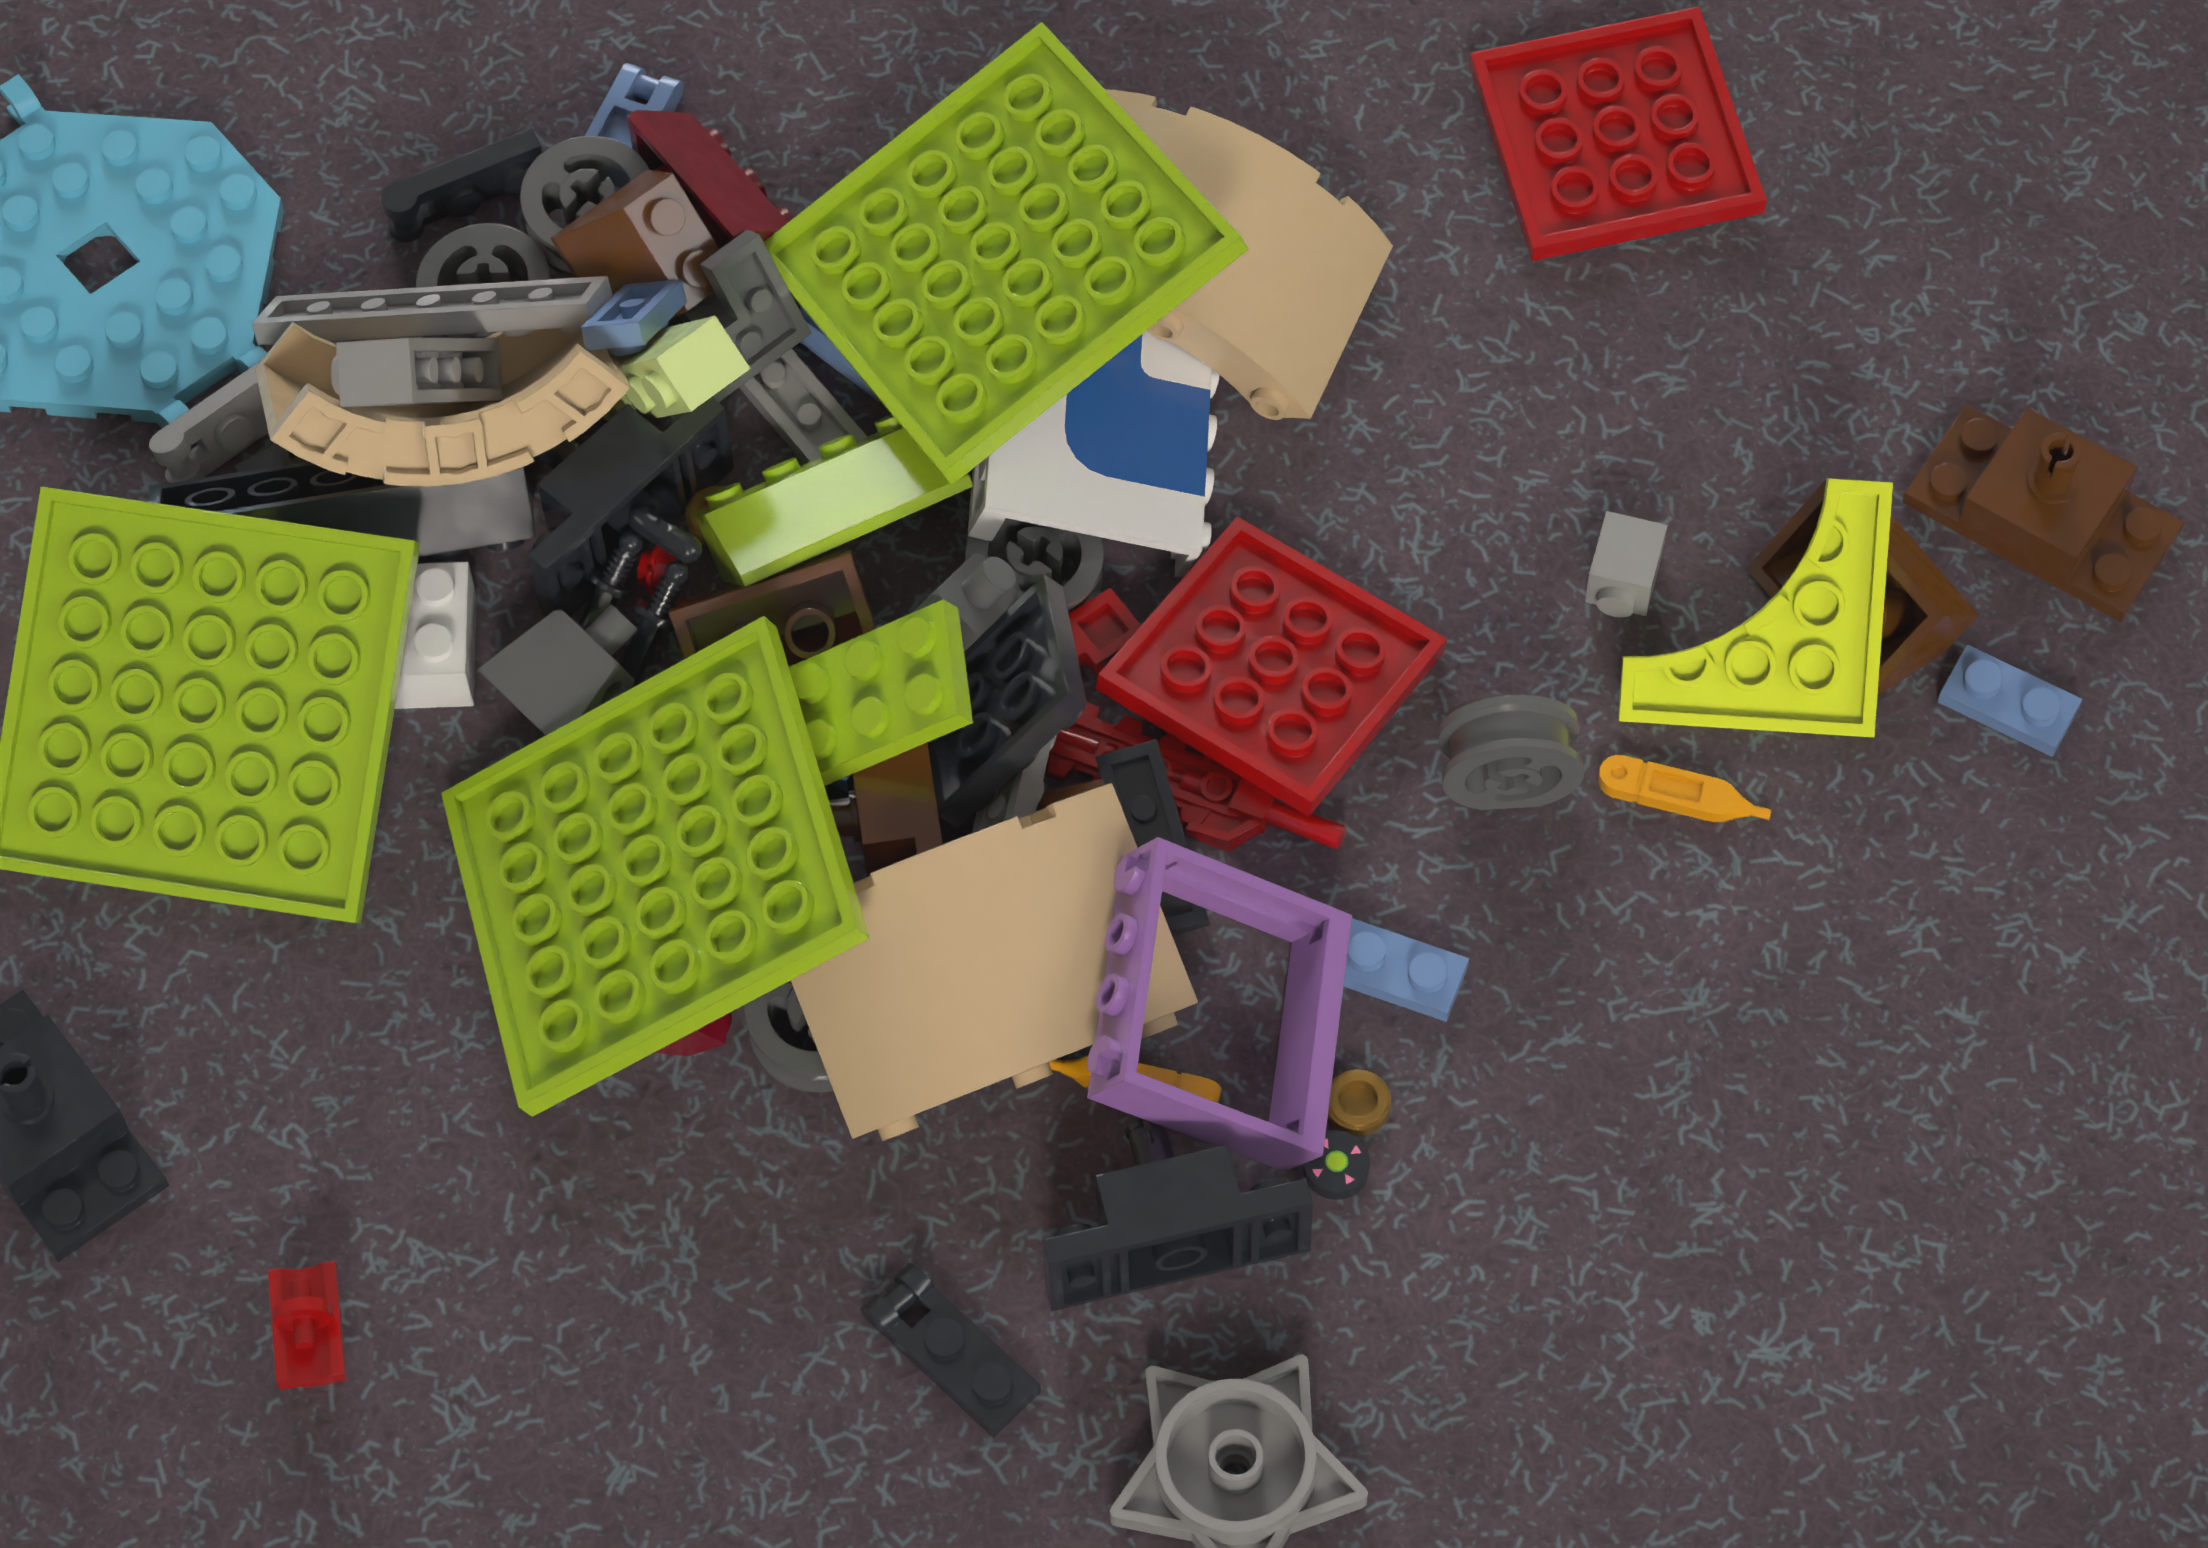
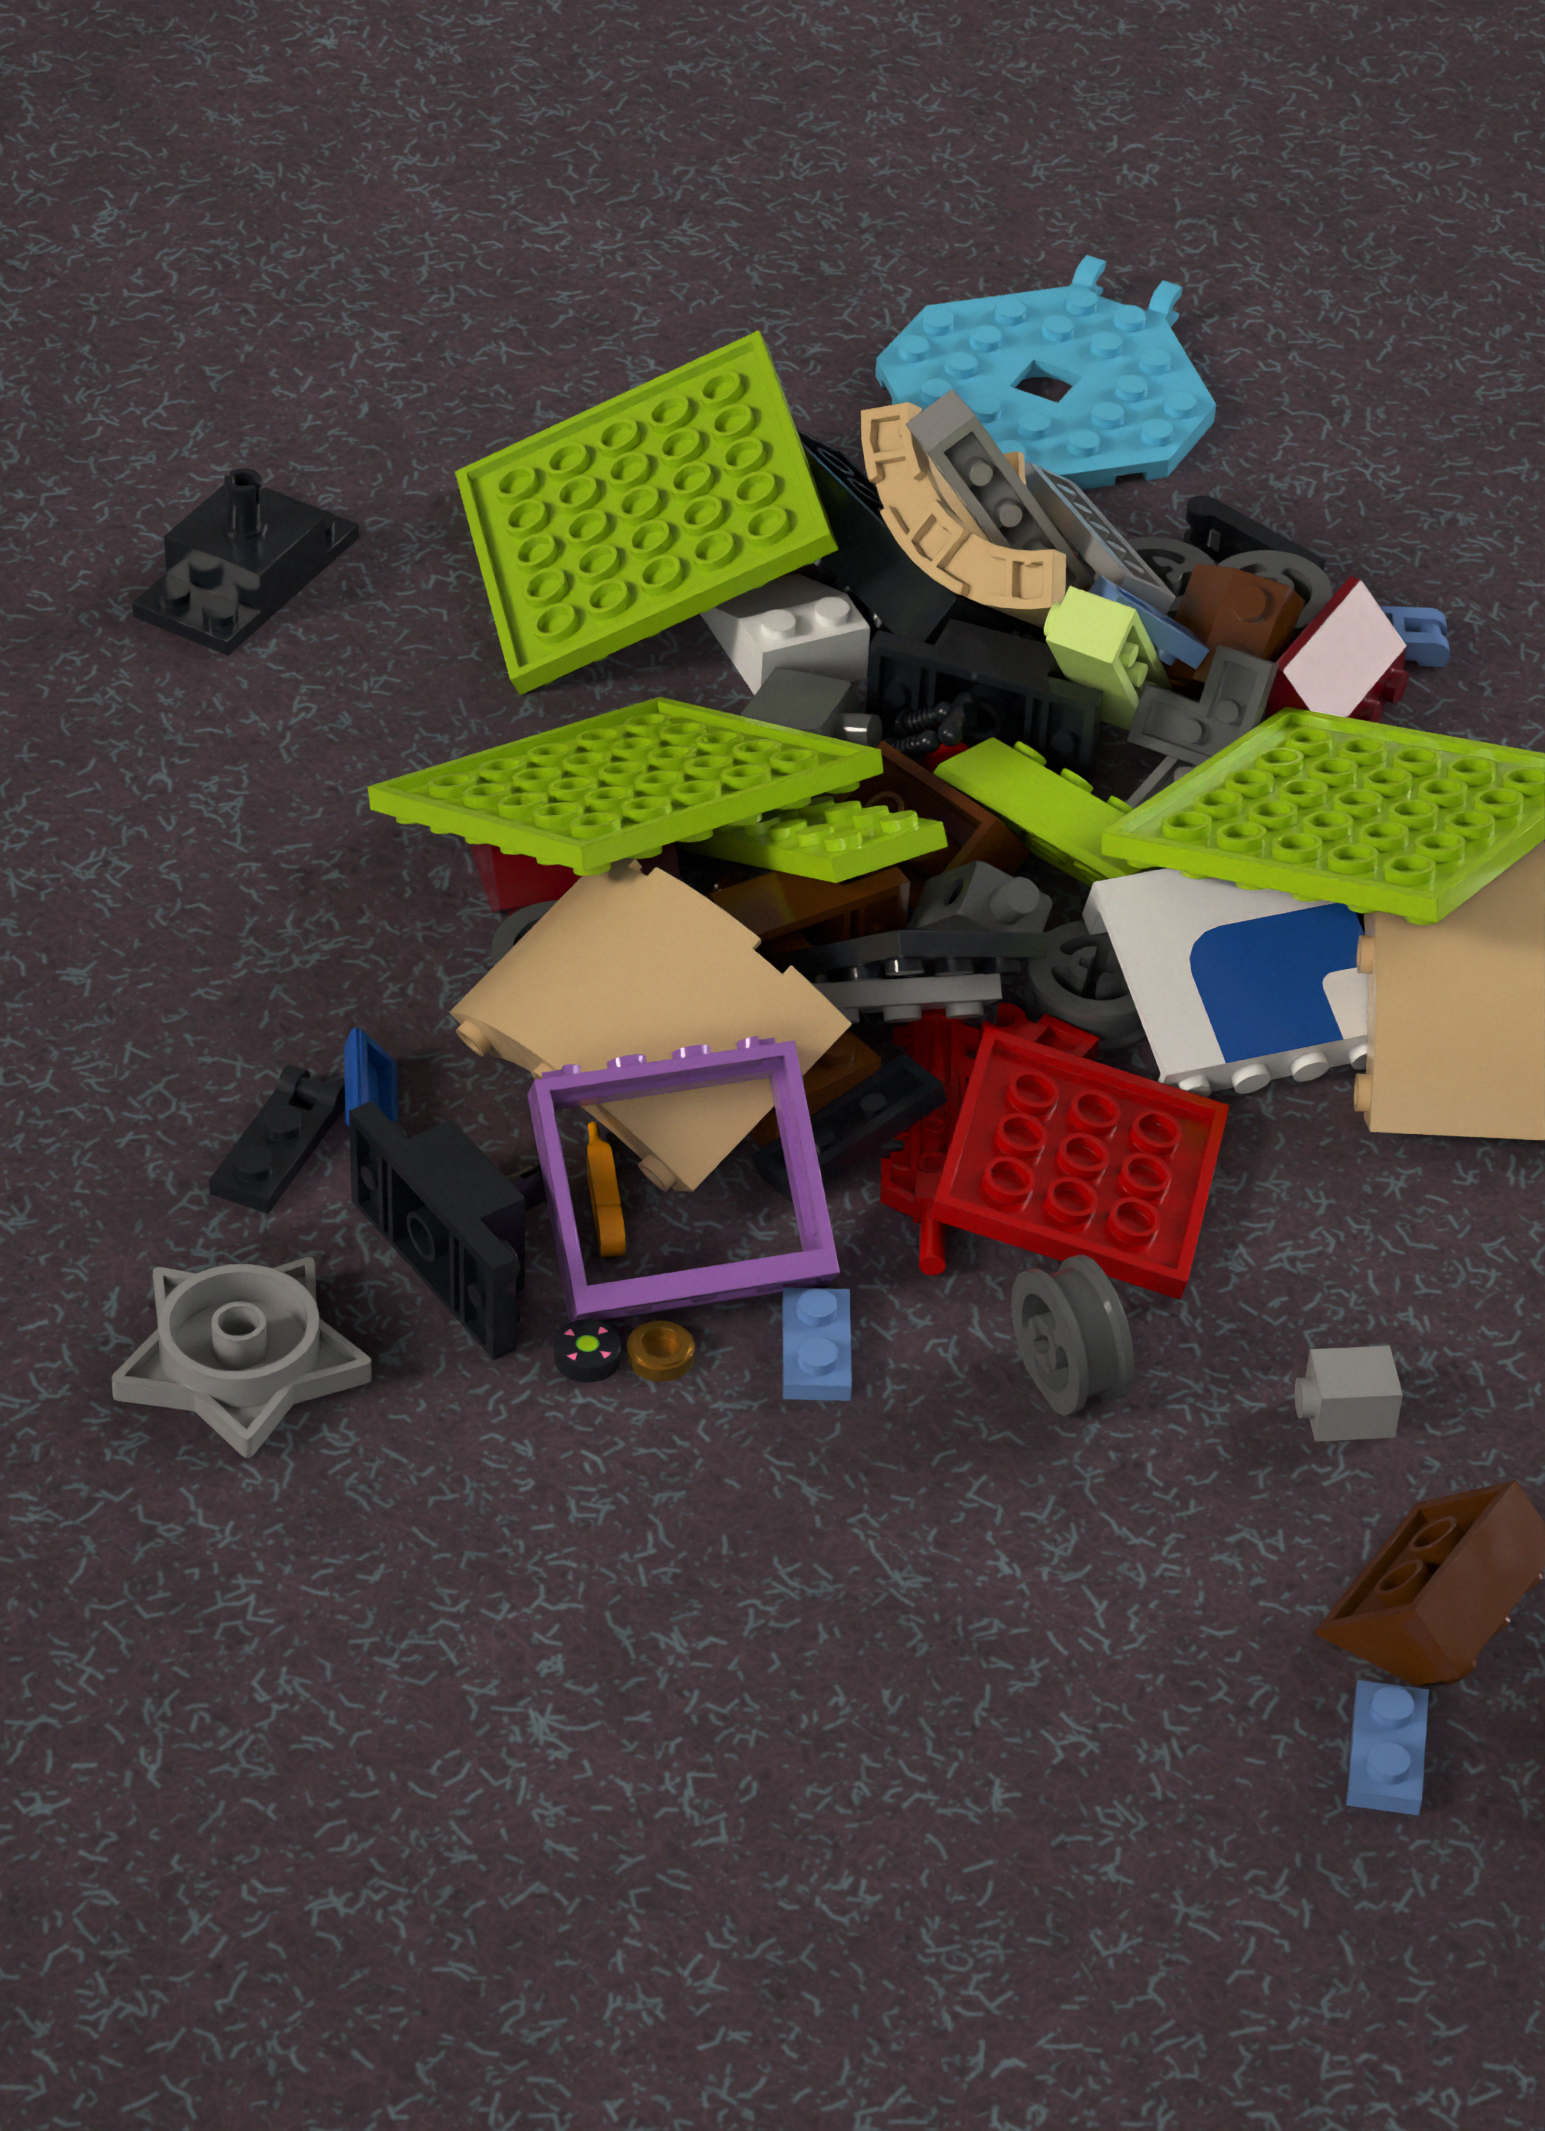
camera: 65 degrees right, 20 degrees down
(307, 1326) = (123, 740): red hips -> none
(925, 1245) = (369, 1075): none -> blue tile
(1674, 790) = (1126, 1503): light orange piece -> none
(1804, 656) = (1330, 1538): neon yellow plate -> none

